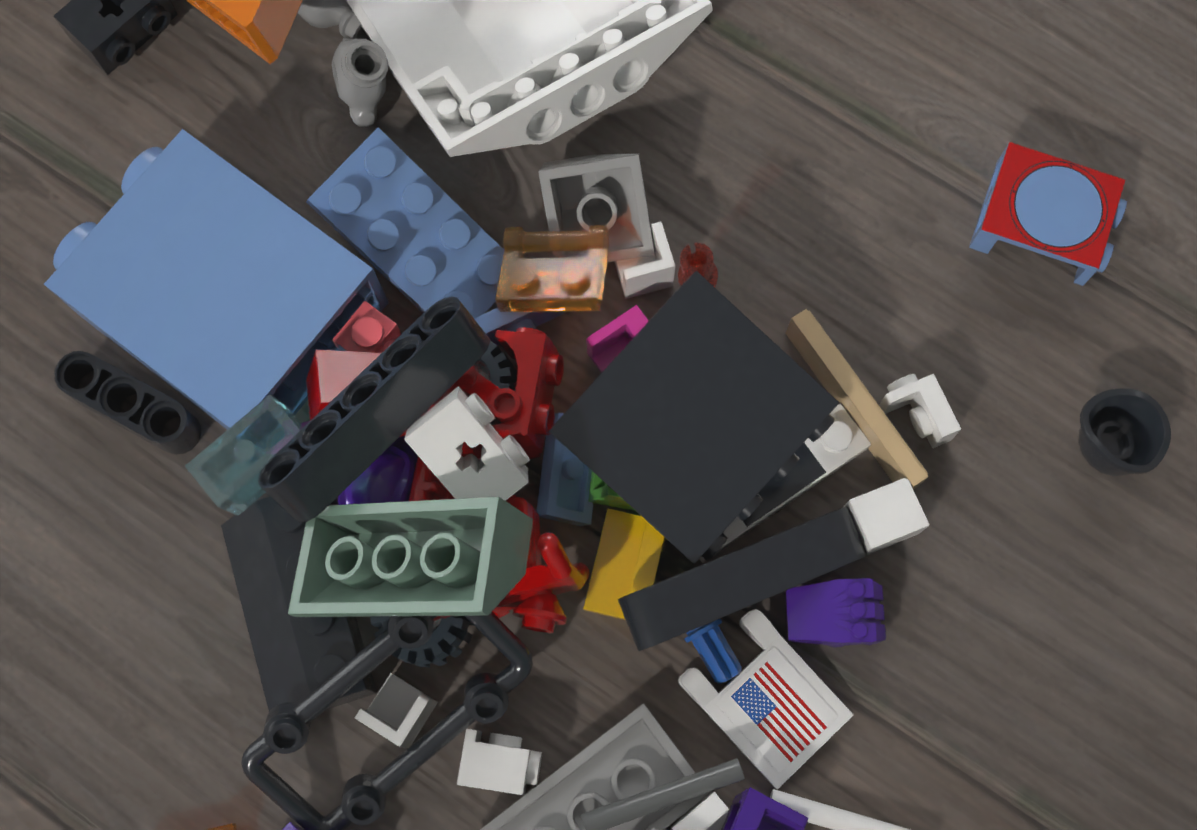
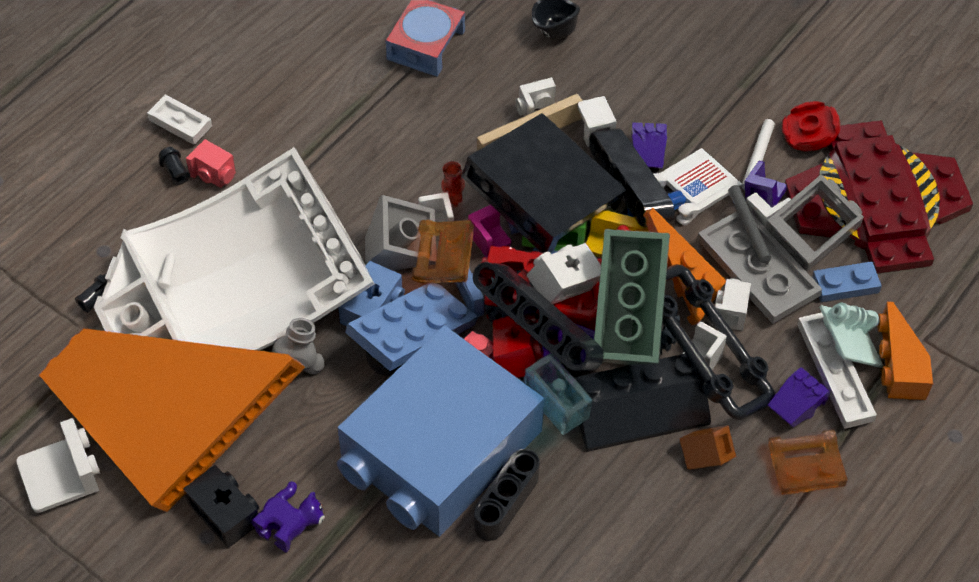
camera: 90 degrees left, 20 degrees down
(97, 101) = (286, 519): none -> dark purple animal
(212, 718) = (708, 447): none -> dark orange panel
(493, 200) = (386, 289): none -> medium blue brick
(560, 675) = (683, 253): none -> orange wing

